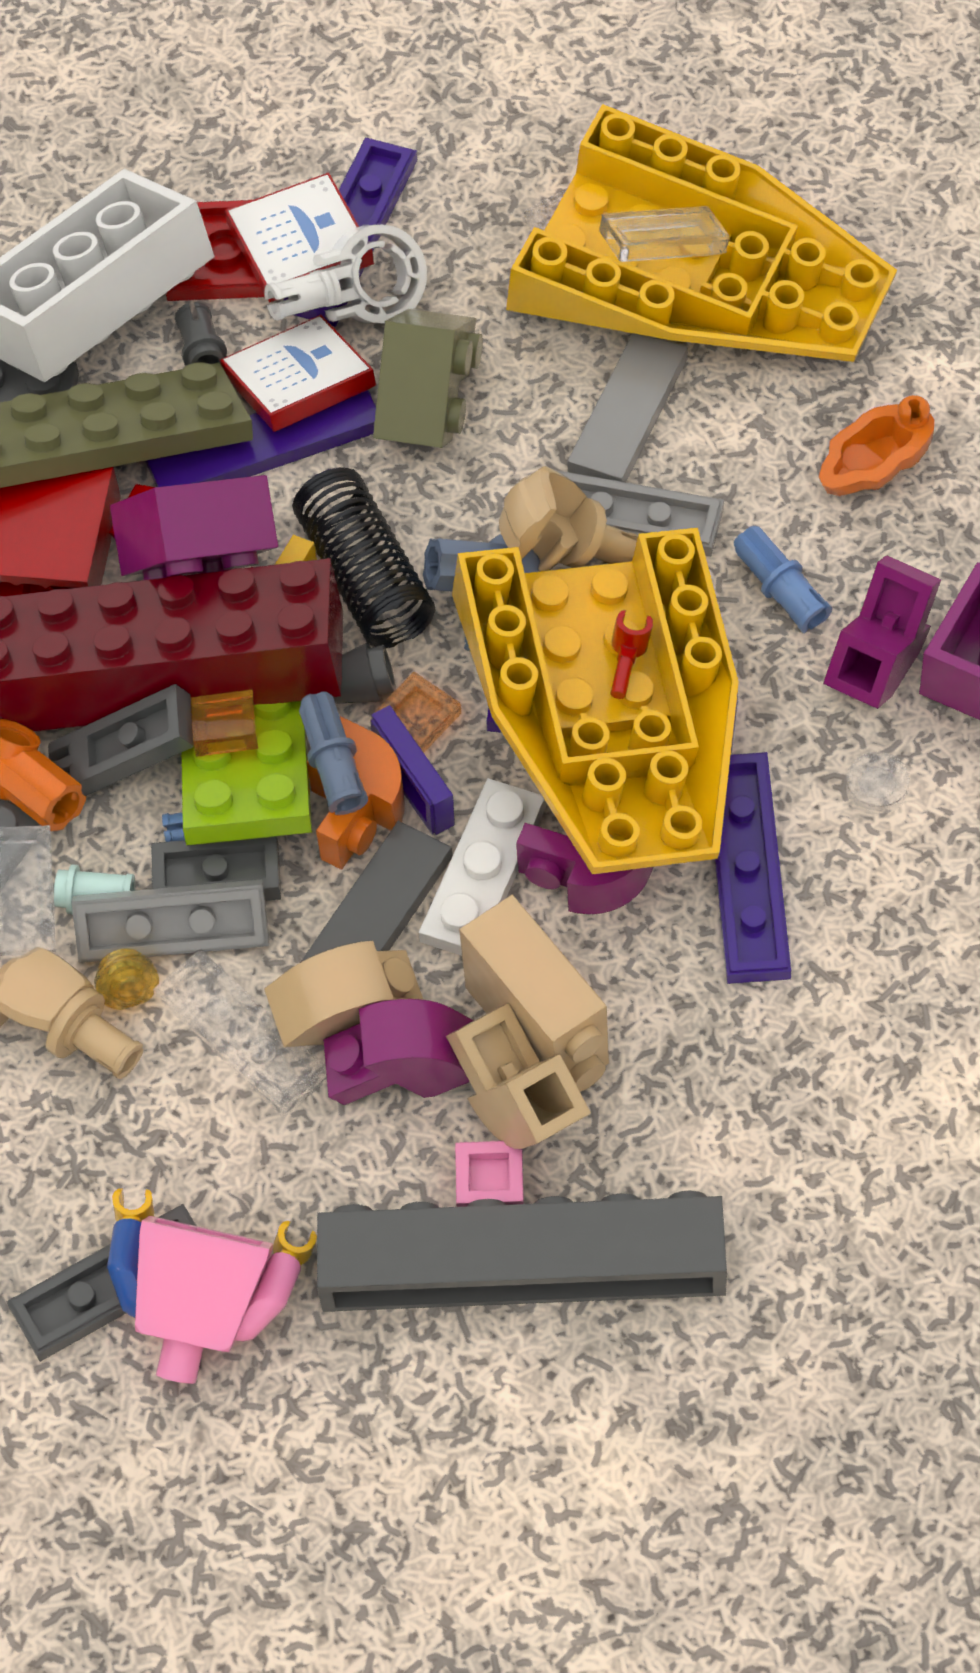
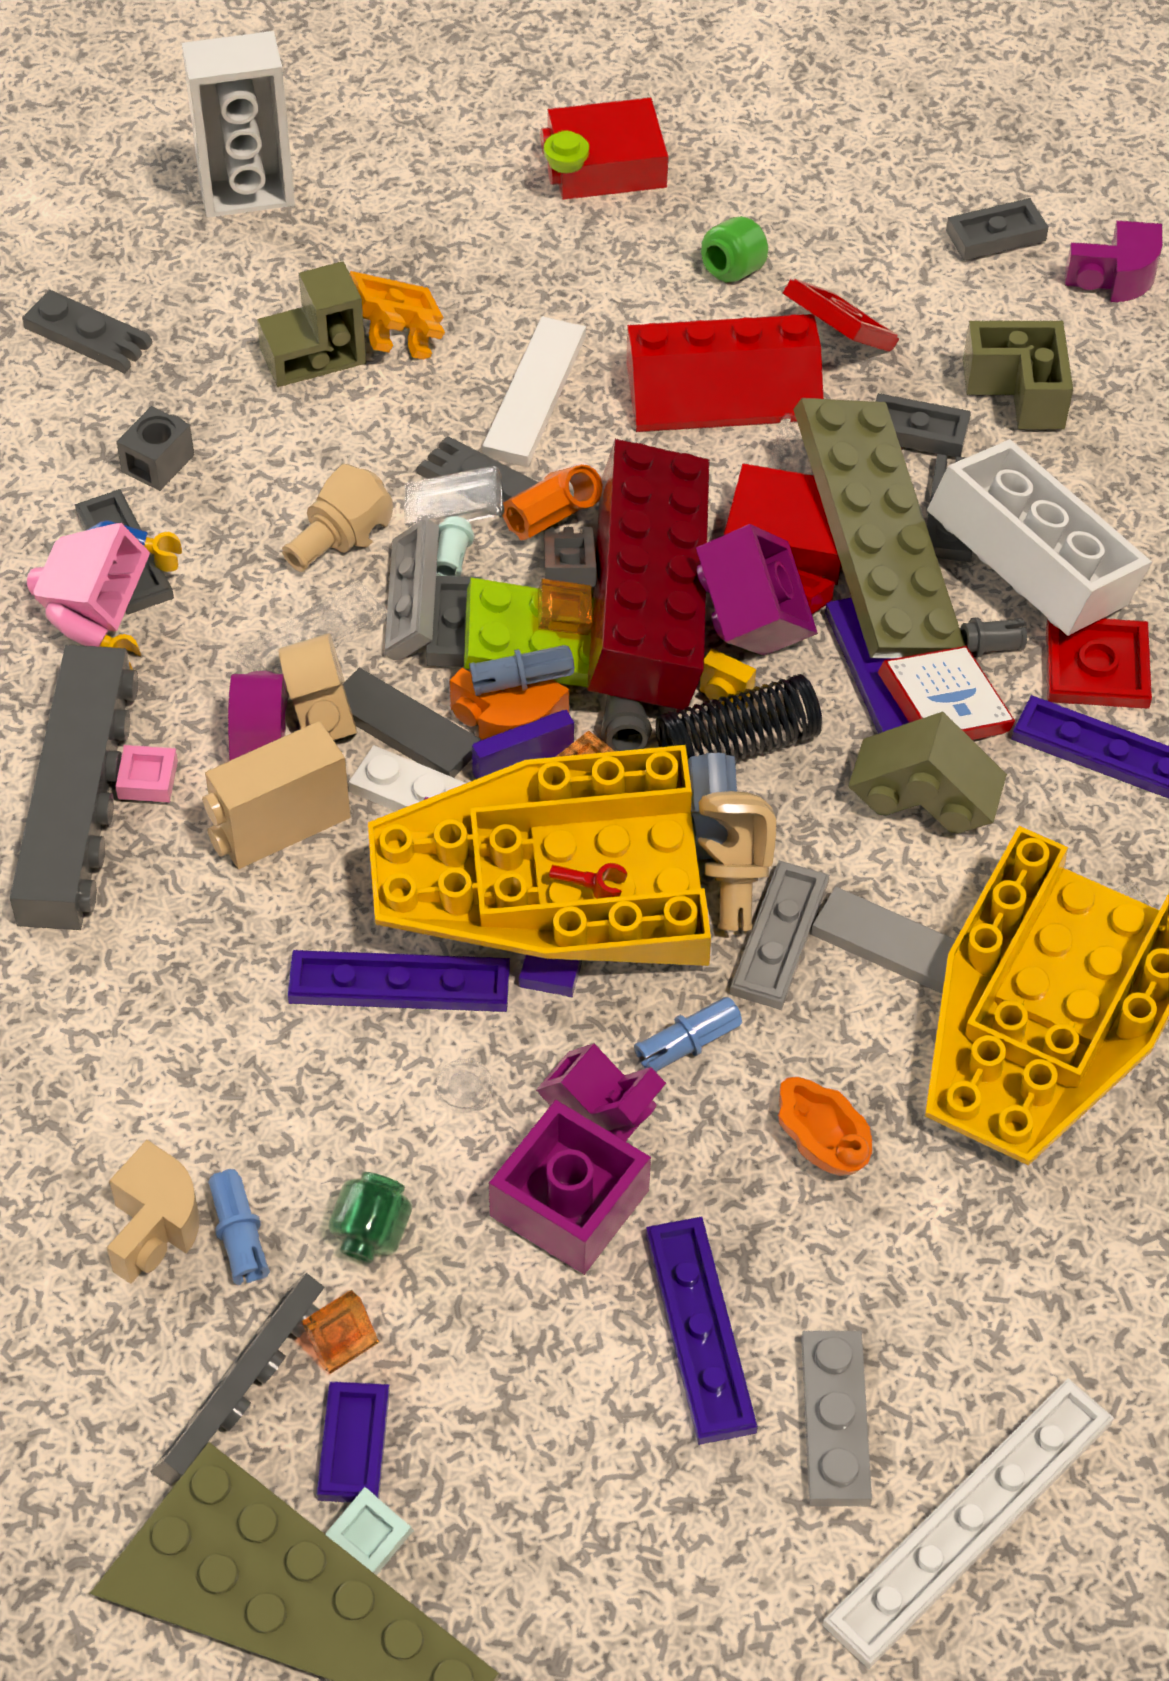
camera: 90 degrees right, 5 degrees down
(124, 967) = (366, 560): clear yellow plate -> none
(290, 227) = (1096, 703): white tile -> none
(323, 288) = (1025, 721): white pin -> none
(514, 1091) = (177, 775): tan brick -> none
(664, 233) = (1066, 957): clear tile -> none

